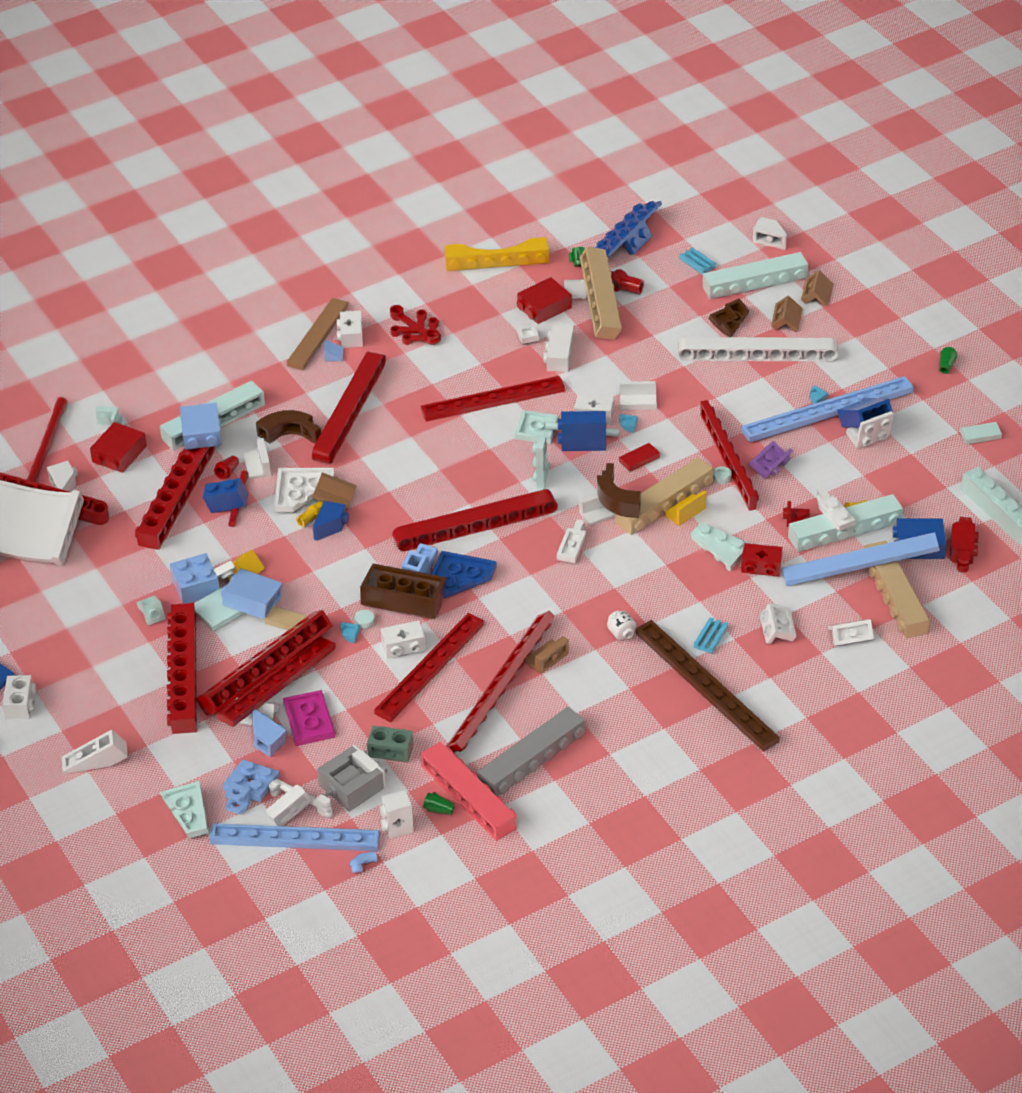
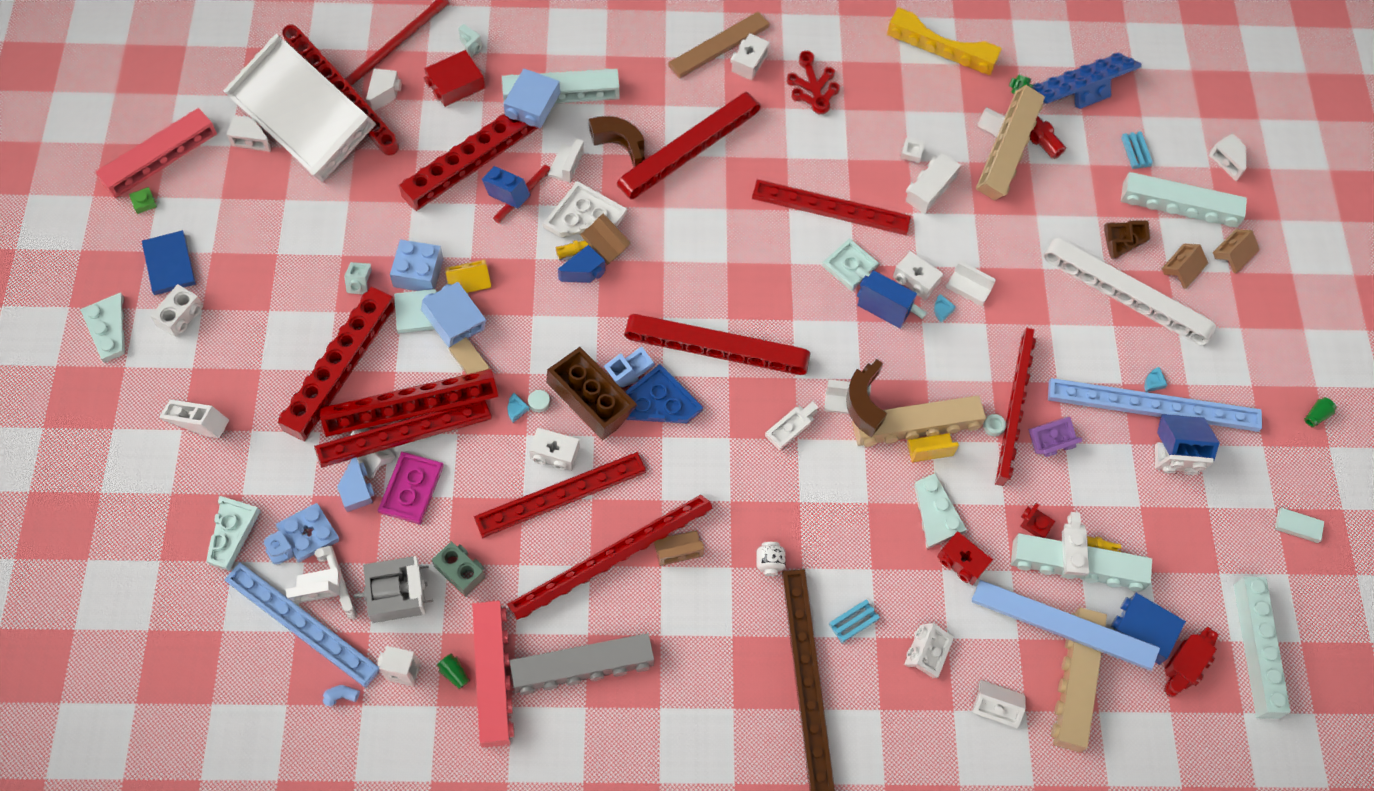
camera: 25 degrees right, 20 degrees up
(225, 467) = (532, 153): red cone -> none
(225, 570) = (442, 277): white plate -> none
(333, 351) = (718, 72): light blue slope -> none
(540, 462) = (818, 317): light aqua wing -> none
(544, 300) = (953, 119): red brick -> none
(639, 457) = (926, 356): red tile -> none

